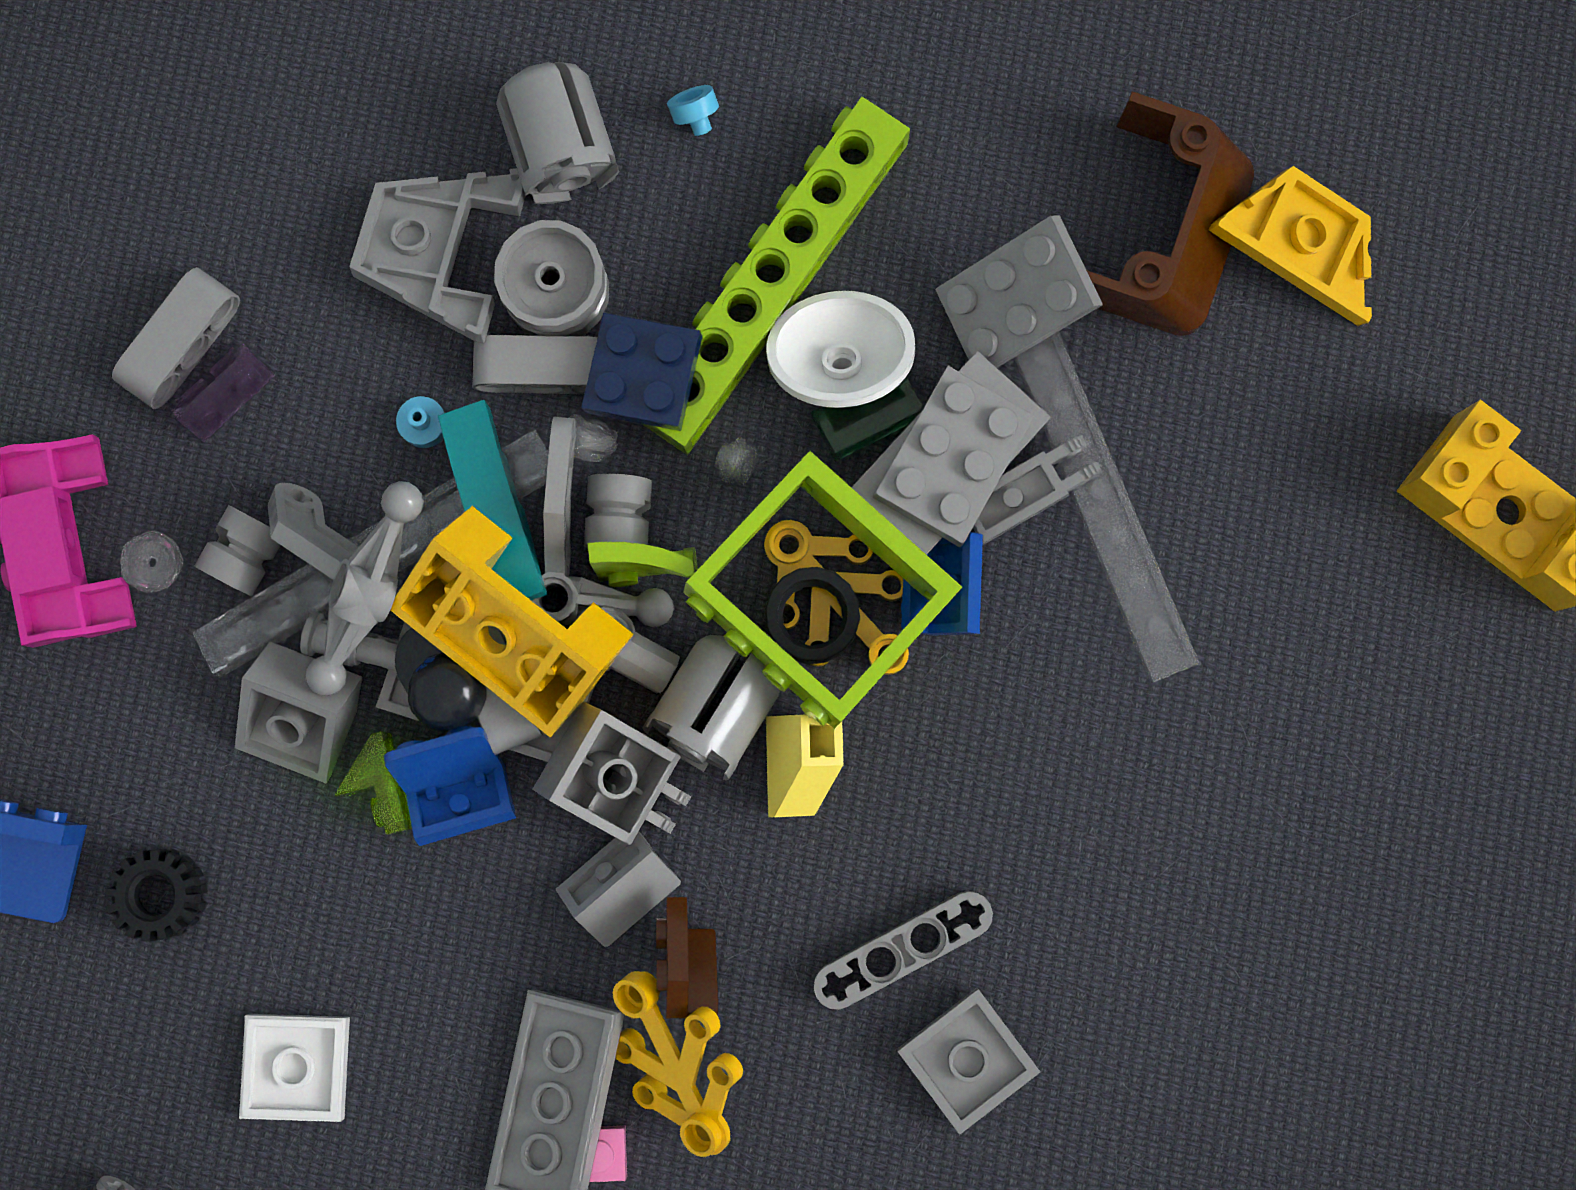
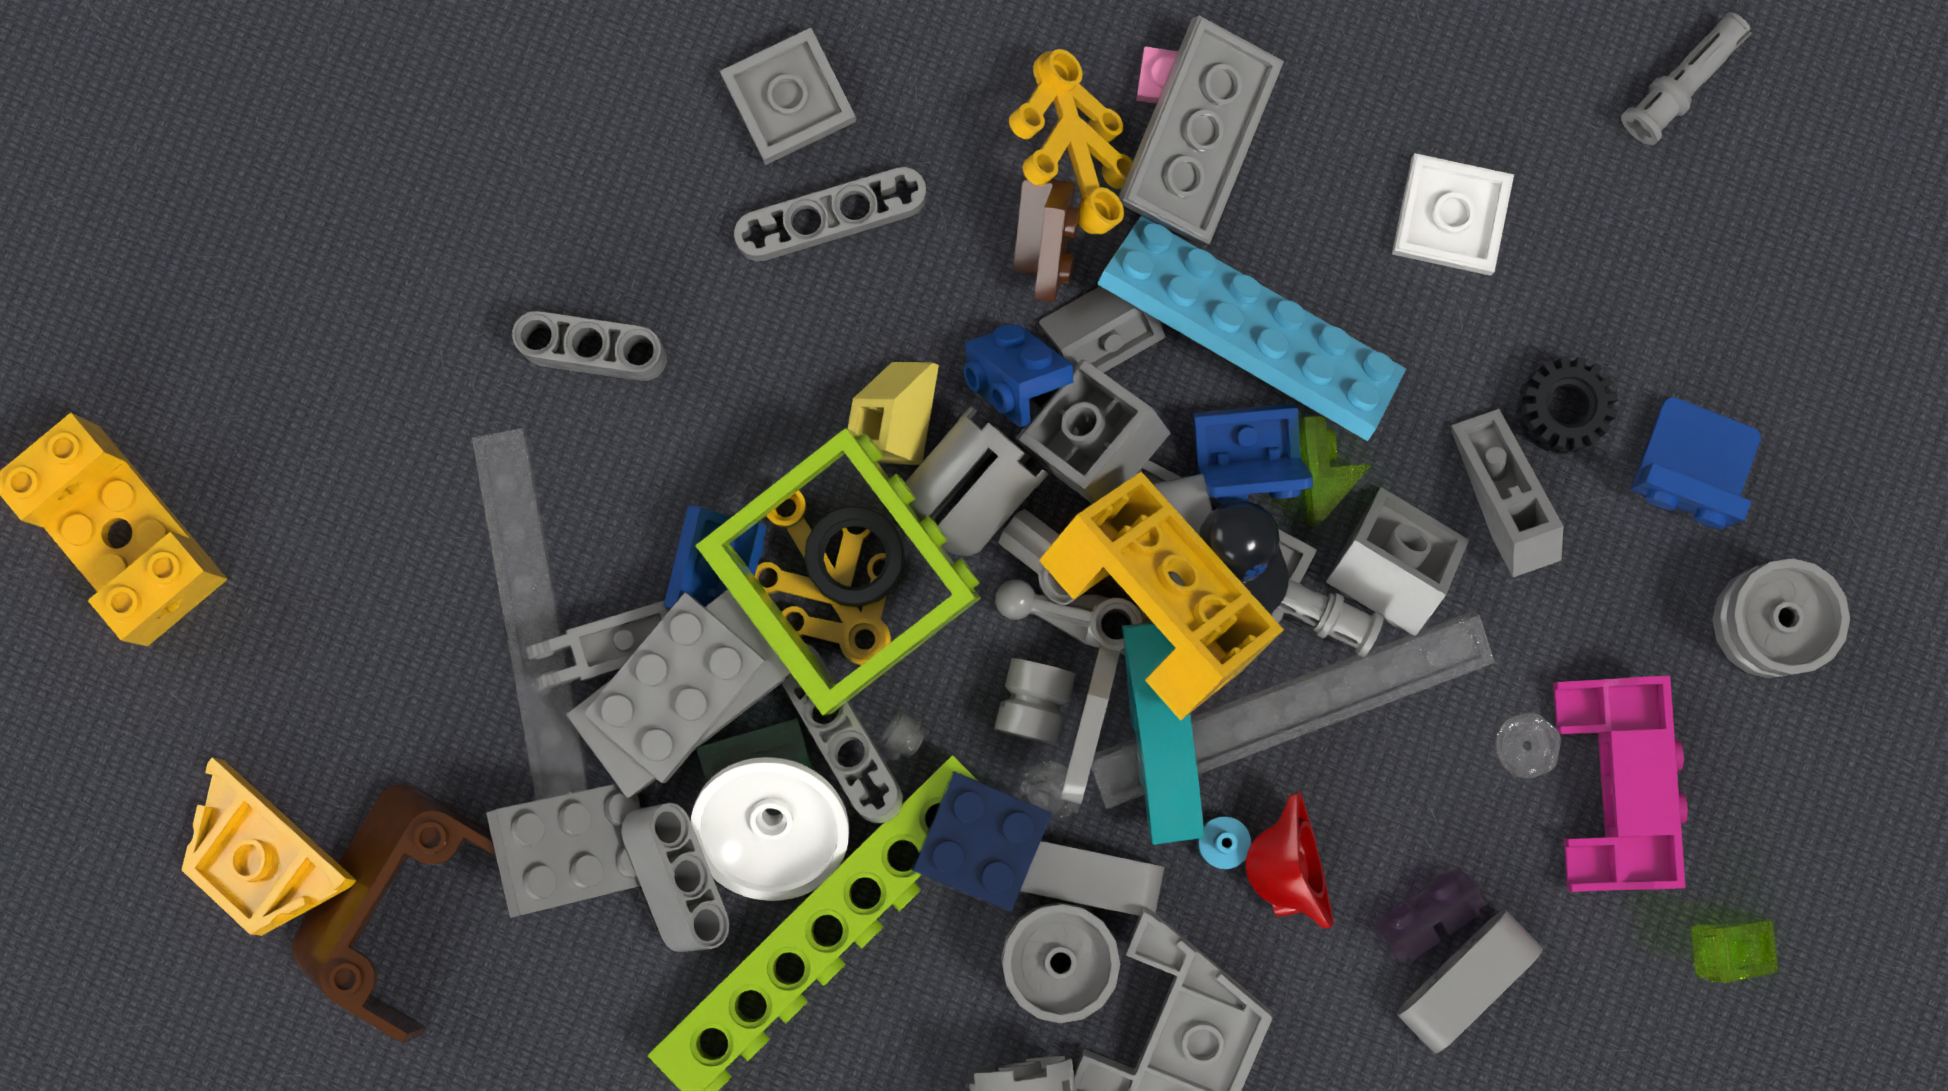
camera: 175 degrees left, 0 degrees up
(200, 797) = (1509, 494): none -> light grey slope
(238, 551) = (1433, 737): light grey wheel -> none
(357, 406) = (1287, 866): none -> red hat
(362, 575) = (1304, 669): light grey piece -> none
(470, 910) = (1253, 327): none -> medium azure plate
(625, 561) = (993, 639): lime plate -> none
(692, 822) = (1012, 368): none -> blue bracket
(802, 438) = (831, 738): none -> light grey beam
(938, 299) = (694, 893): none -> light grey beam
(1130, 764) = (570, 331): none -> light grey beam

